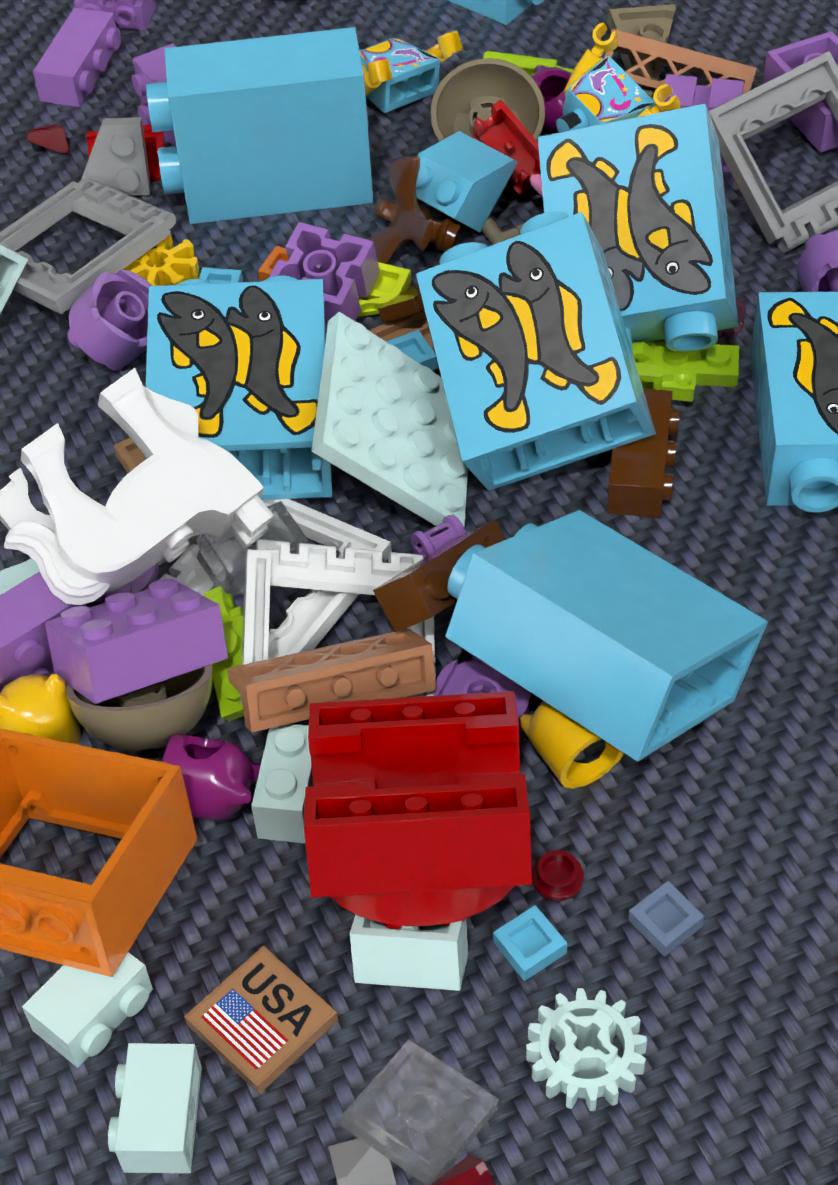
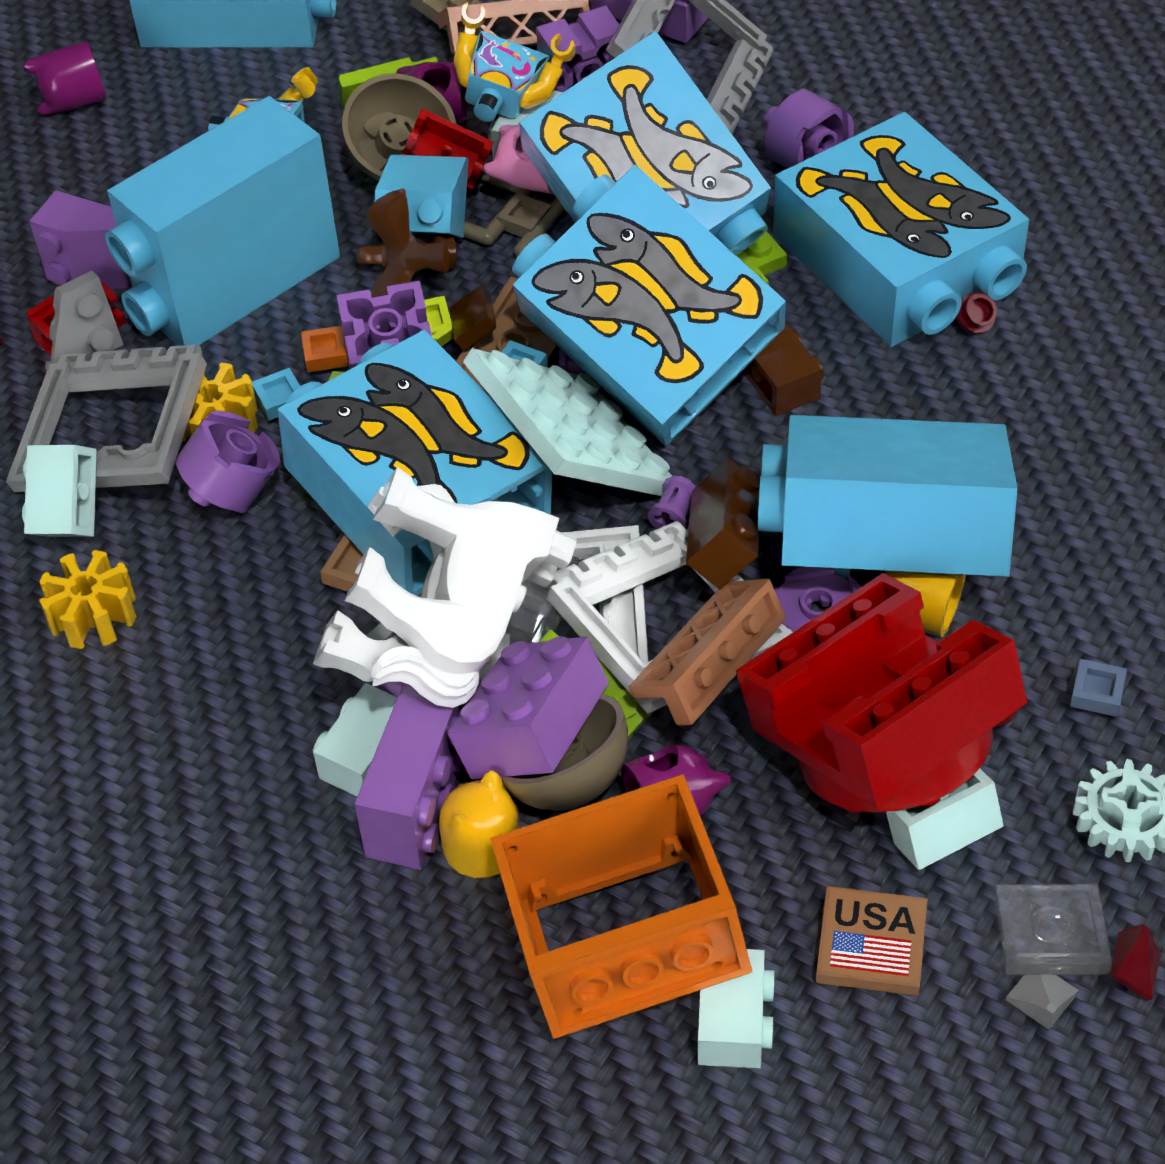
camera: 35 degrees left, 0 degrees up
(156, 1109) = (863, 1049): light aqua brick -> none
(281, 784) = (736, 747): light aqua brick -> none
(529, 942) = (1020, 762): medium azure plate -> none

